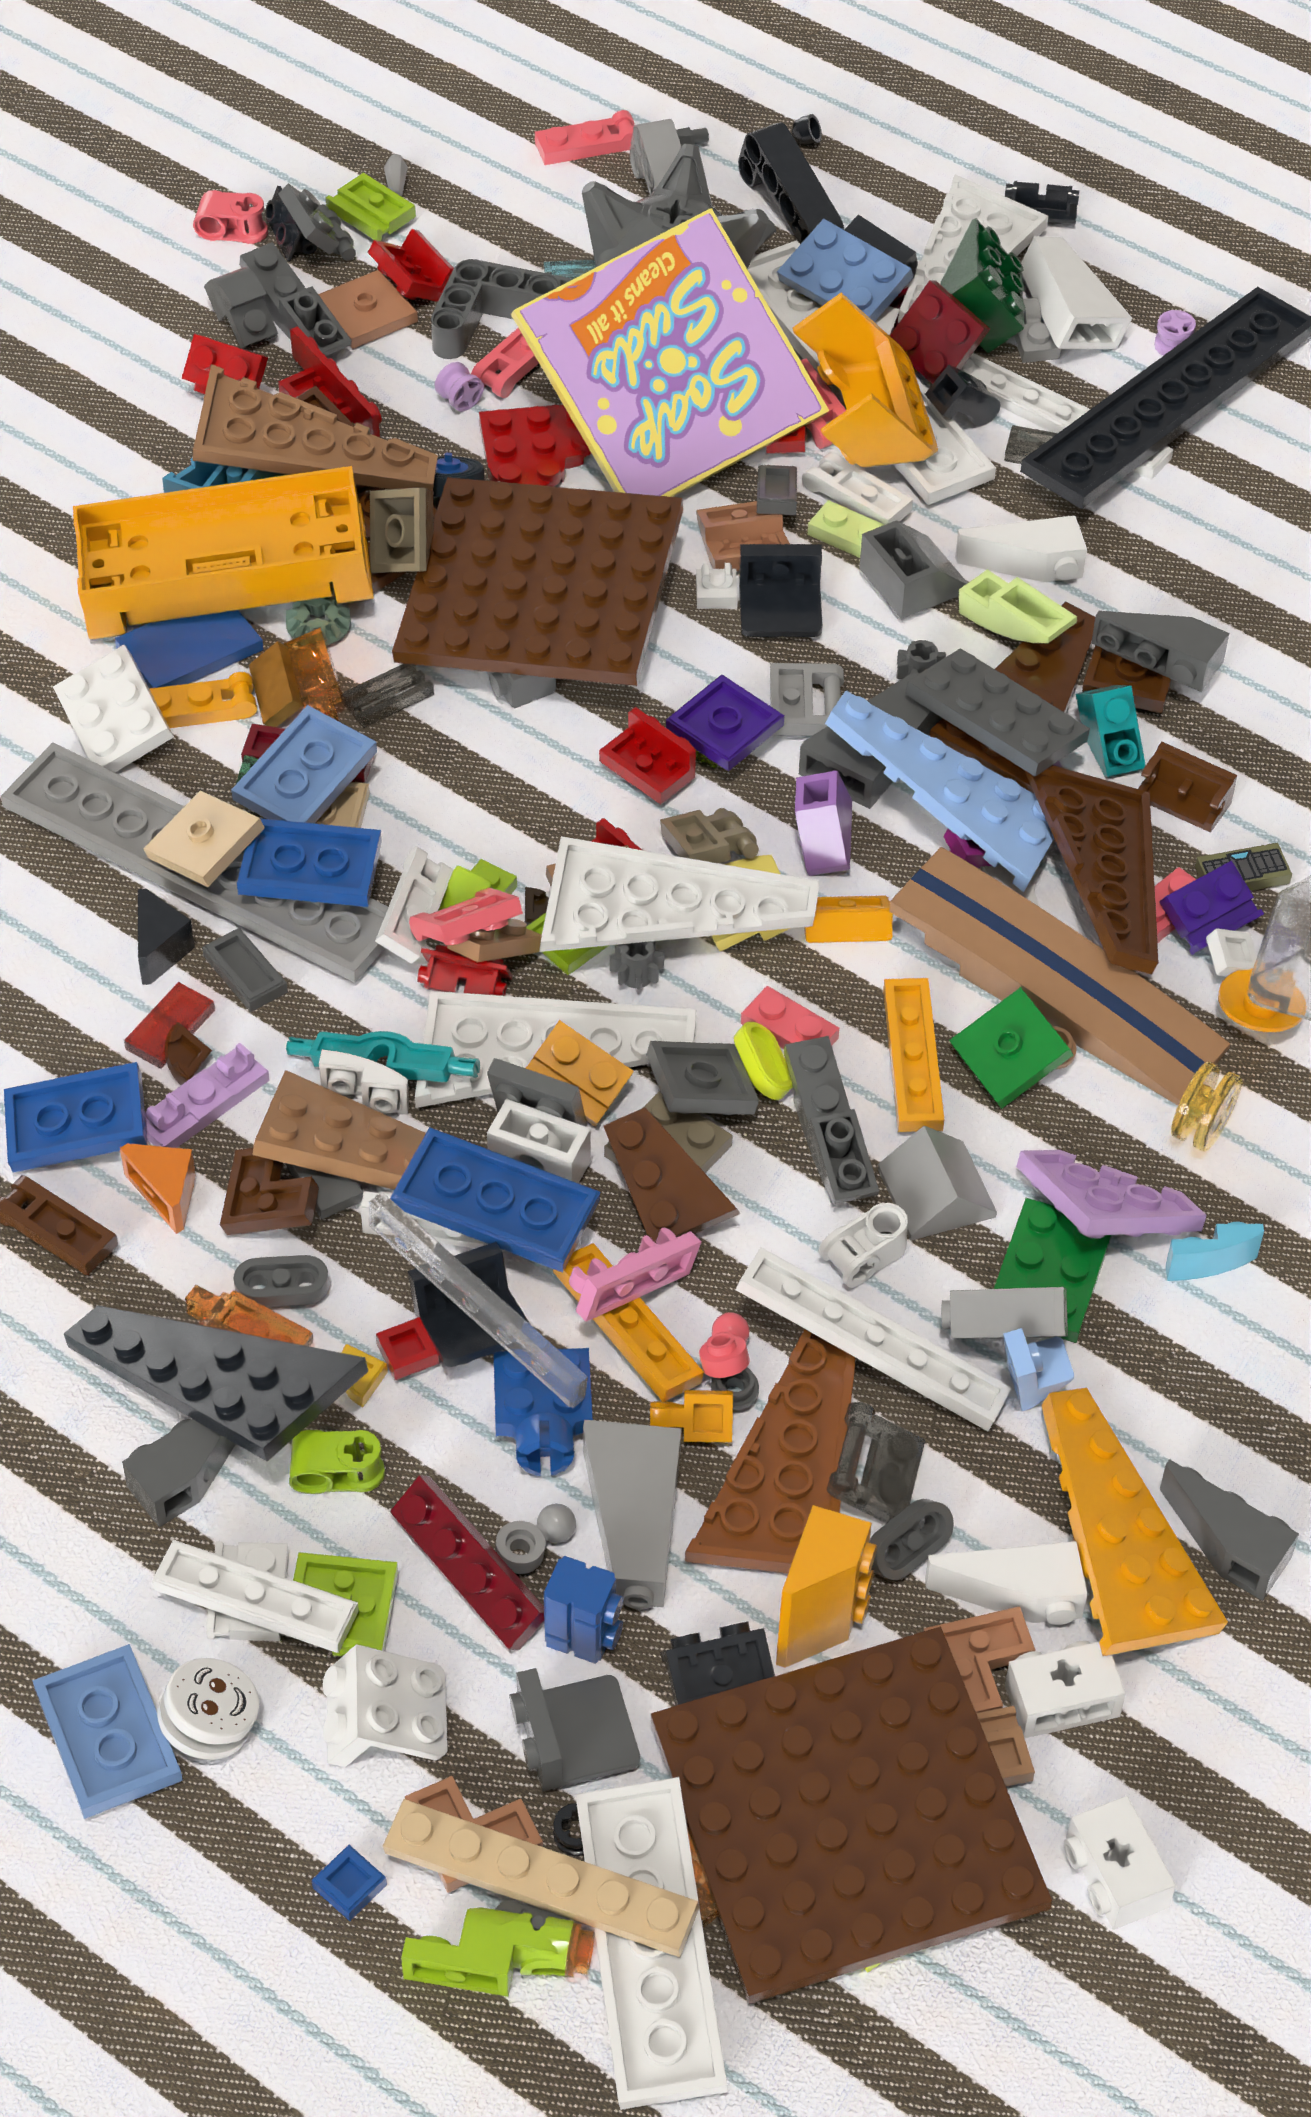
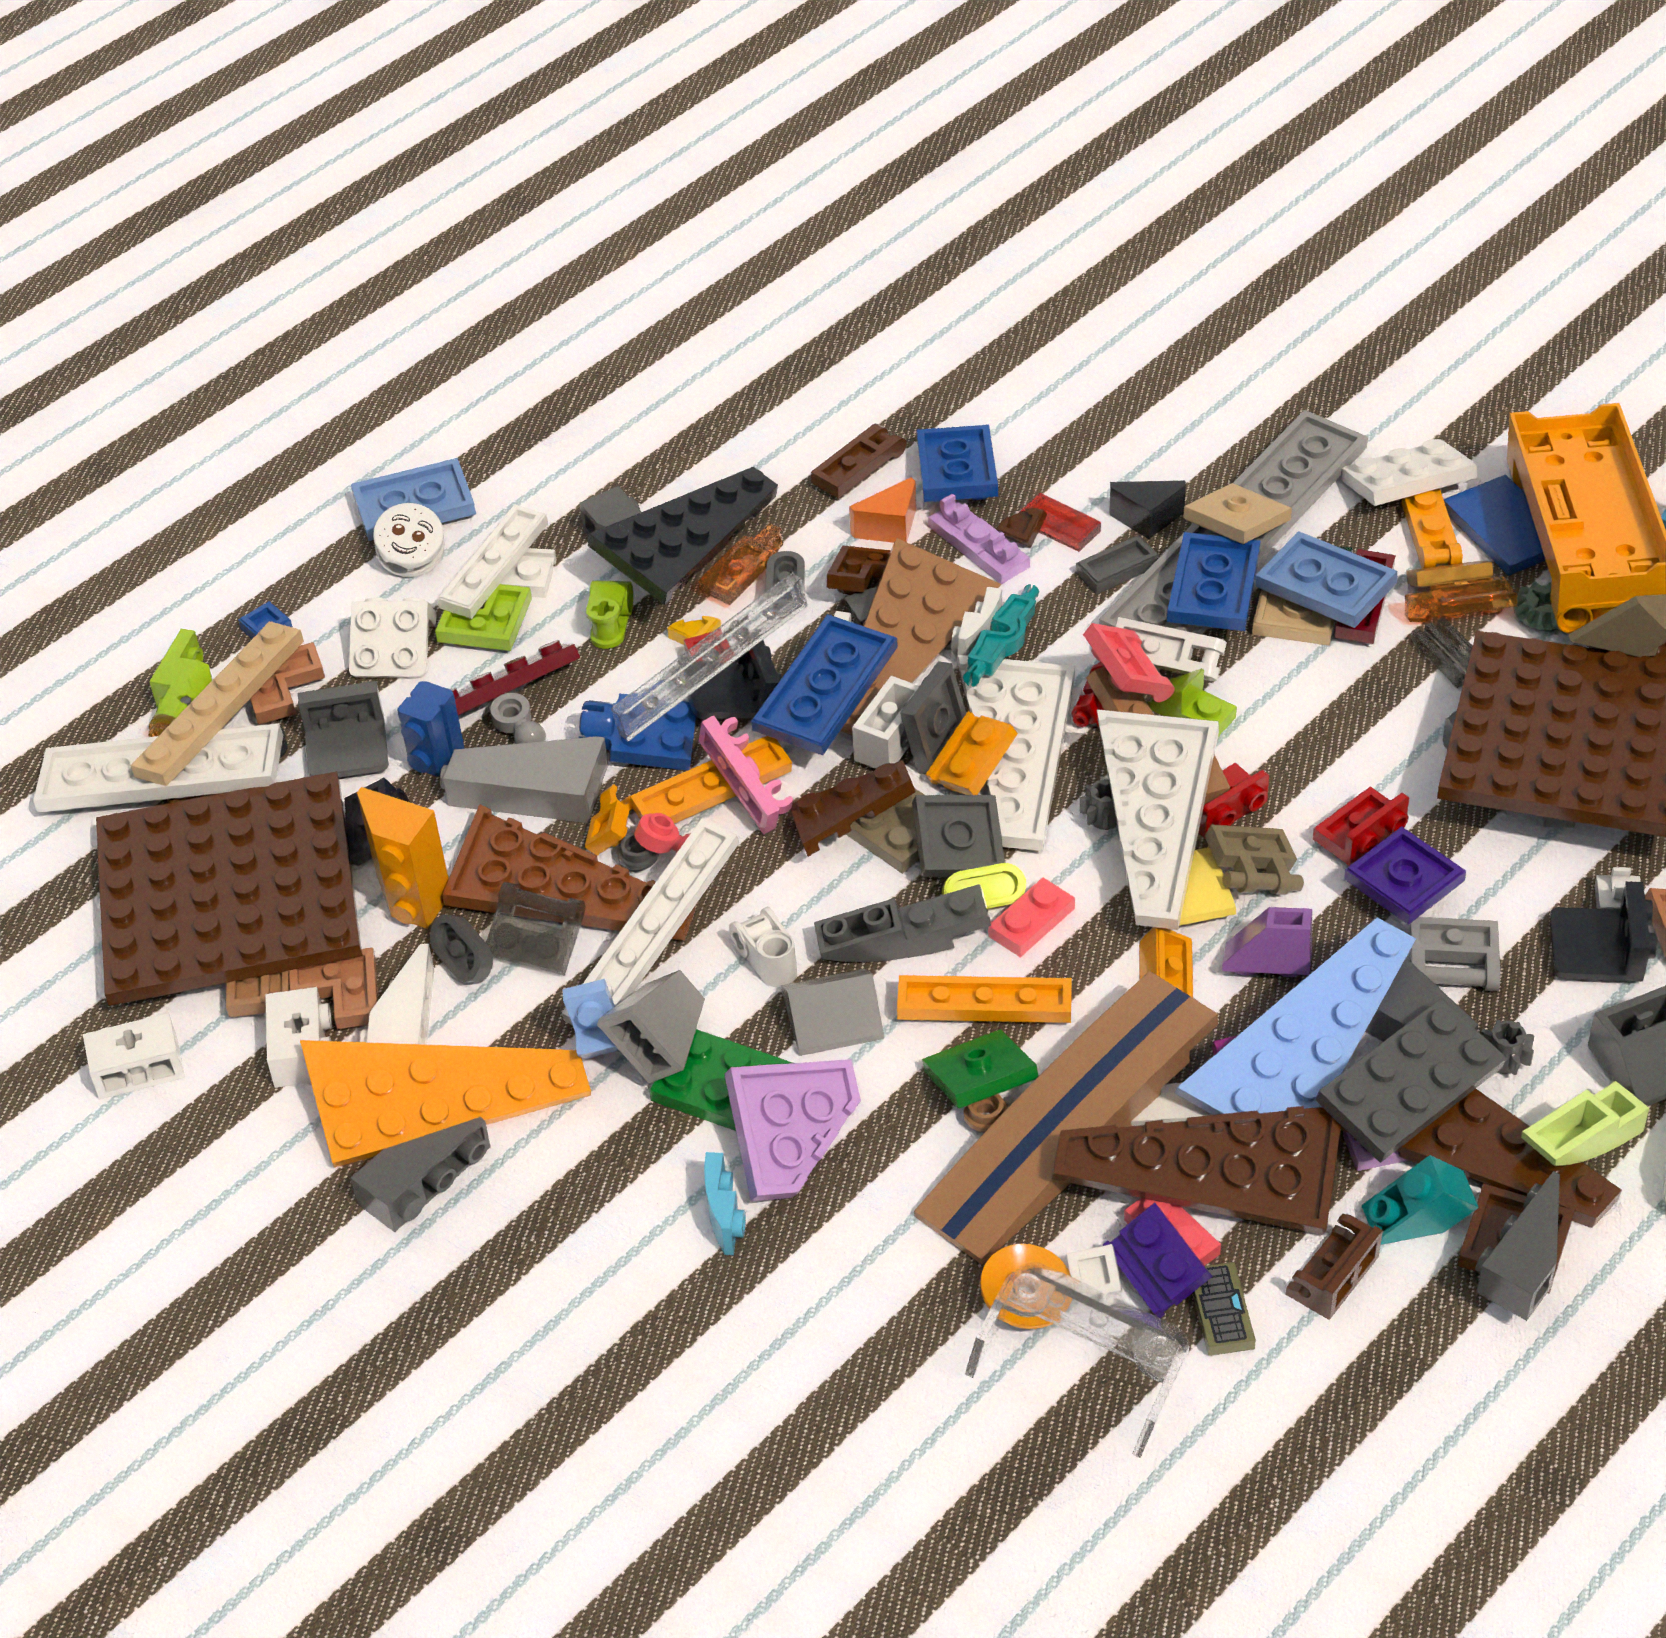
camera: 100 degrees right, 5 degrees down
(1206, 1107) = (884, 1208): clear yellow head -> none

